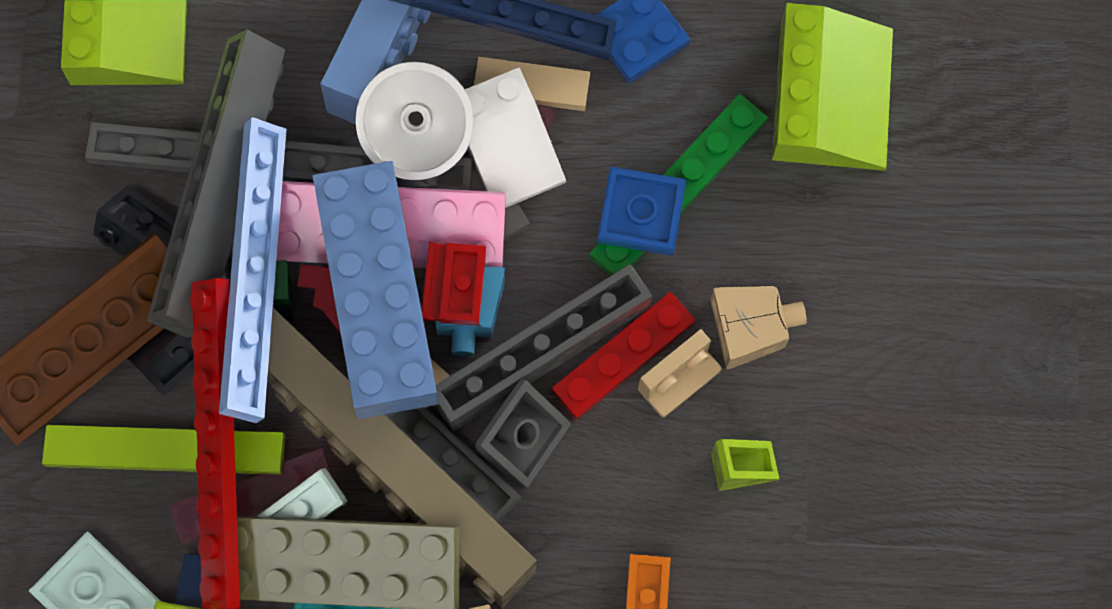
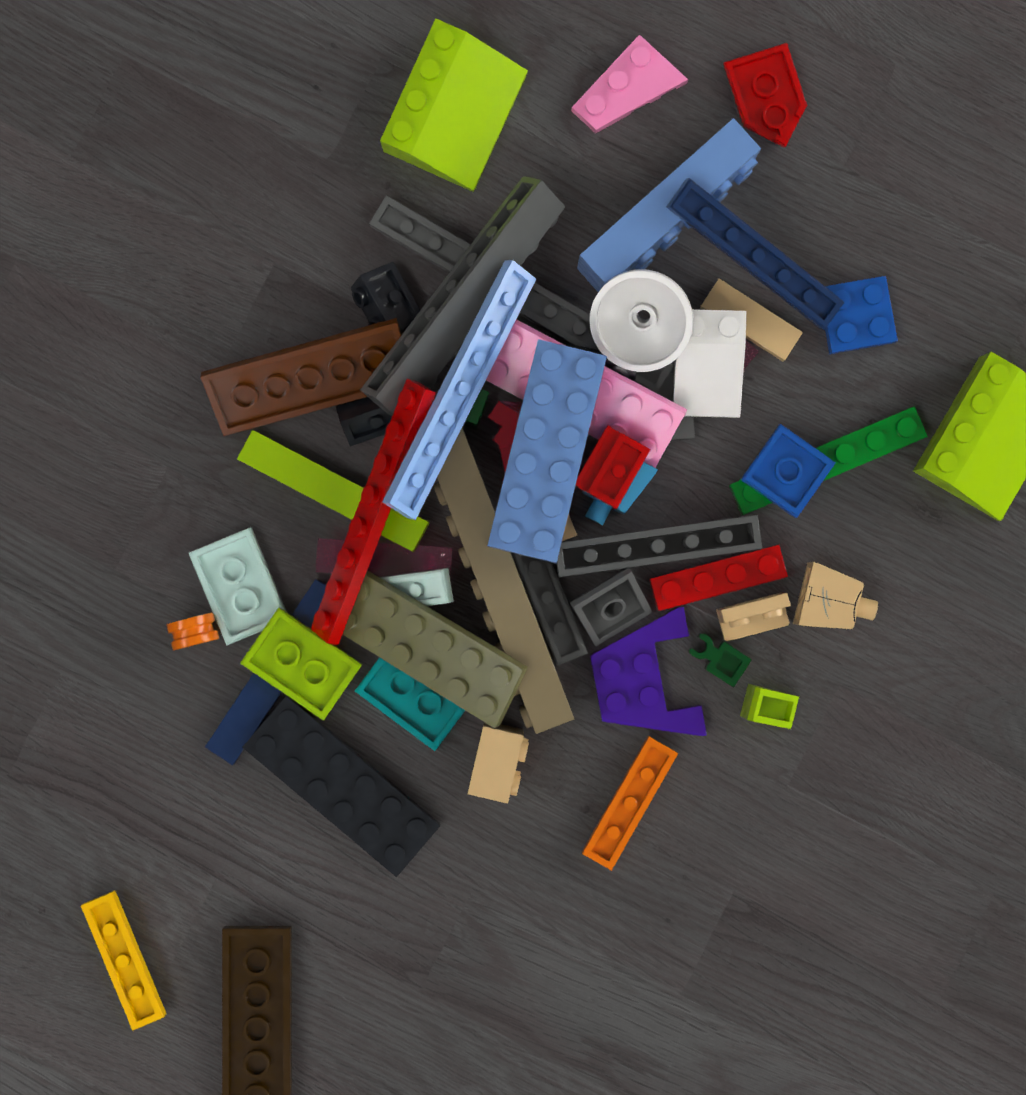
camera: 30 degrees right, 15 degrees up
(583, 507) = (631, 682): none -> dark purple wing
(673, 439) = (724, 662): none -> dark green plate

